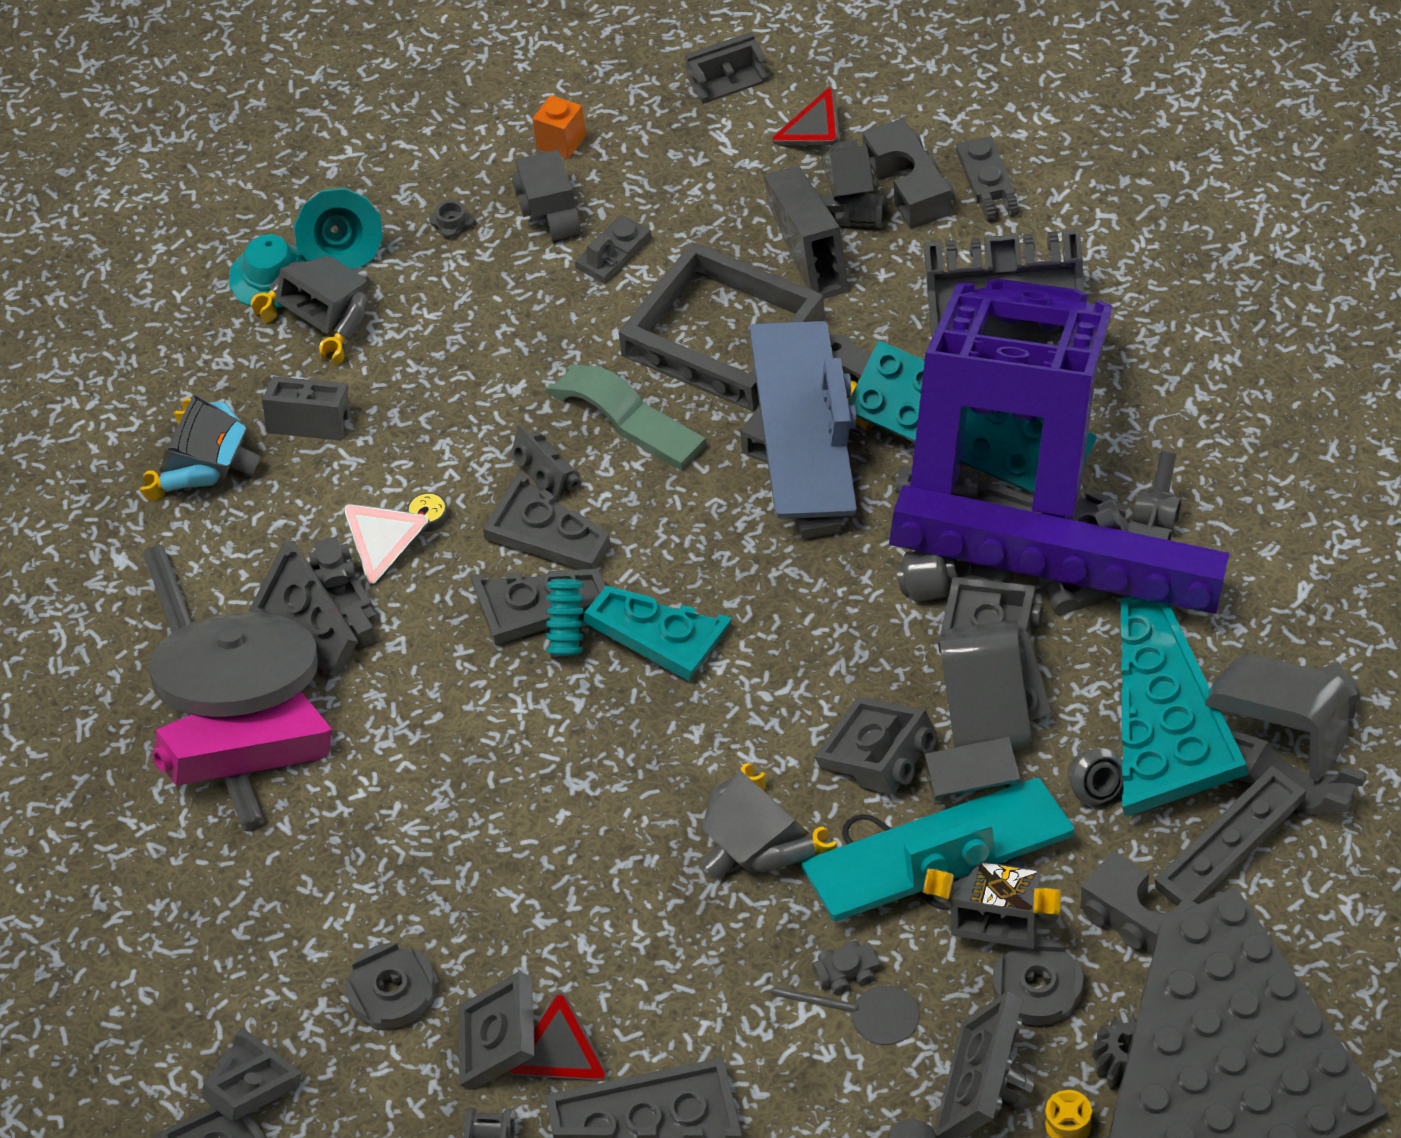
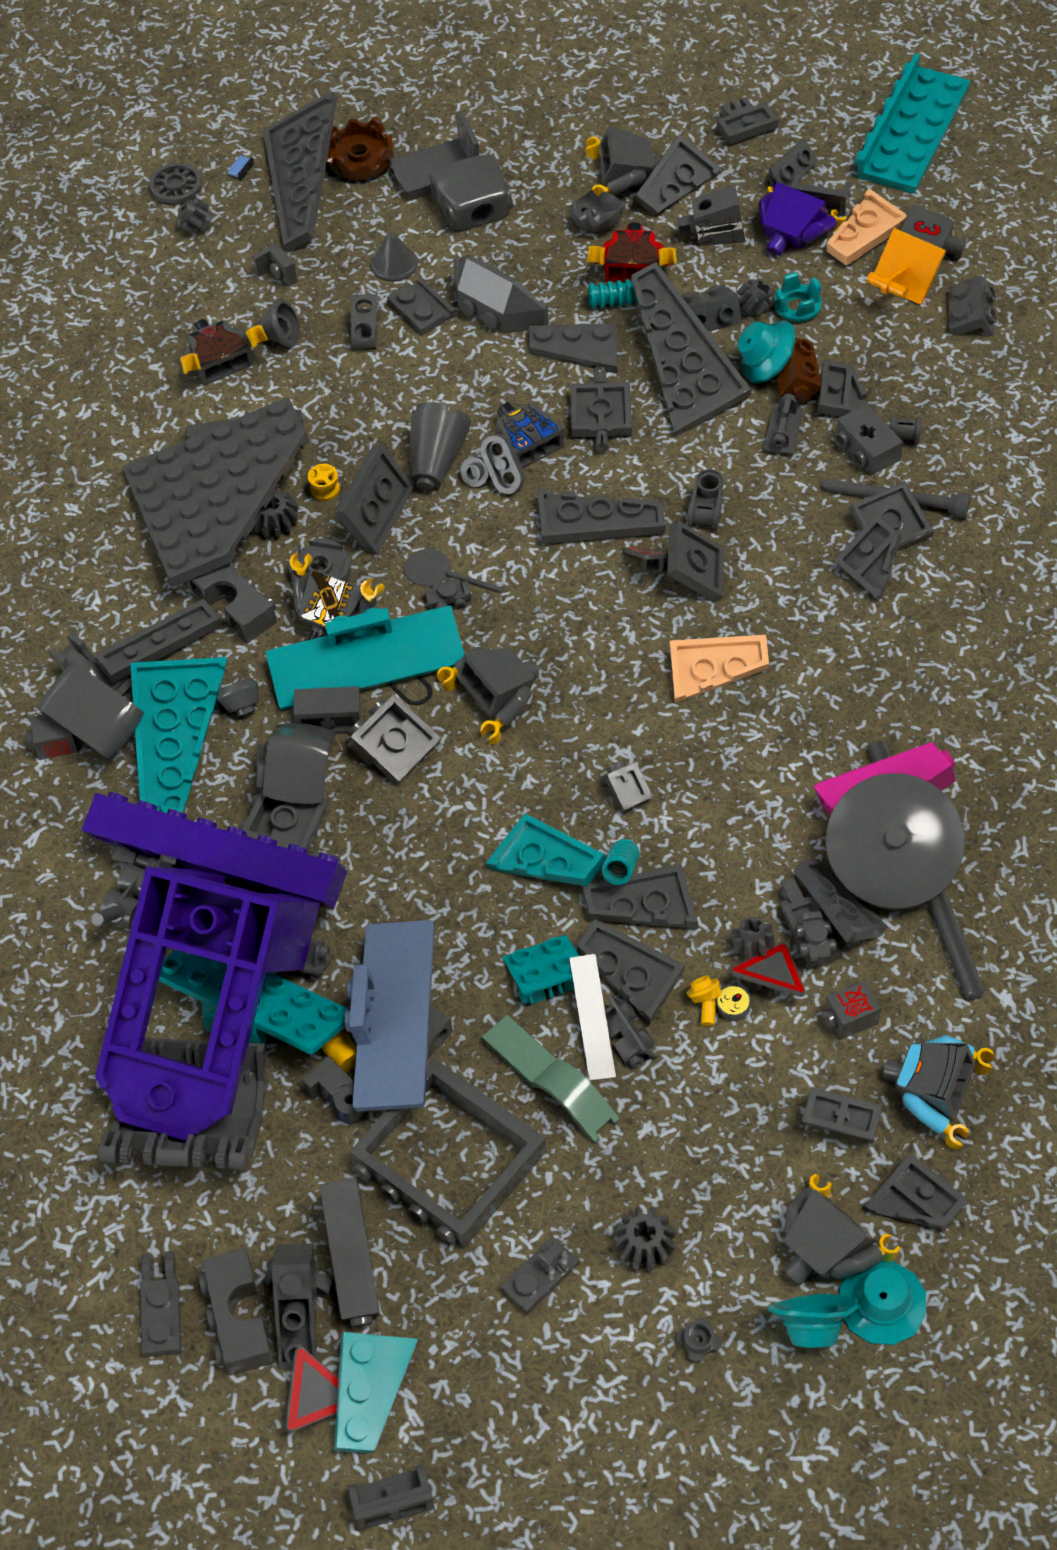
camera: 175 degrees left, 5 degrees up
(230, 355) = (917, 1197): none -> dark grey wing
(294, 508) = (851, 1010): none -> dark grey brick
(394, 1008) = (767, 597): dark grey plate -> none
(408, 556) = (753, 937): none -> dark grey gear
(460, 507) = (705, 991): none -> yellow plate
(476, 904) = (715, 662): none -> light nougat wing
(509, 280) = (635, 1248): none -> dark grey gear
(547, 193) = (599, 1339): dark grey hinge -> none
(559, 126) = (578, 1431): orange brick -> none
(572, 729) = (627, 785): none -> bracket
(583, 464) = (592, 1017): none -> white sticker
(643, 513) = (542, 968): none -> teal hinge
(764, 141) = (367, 1386): none -> teal wing

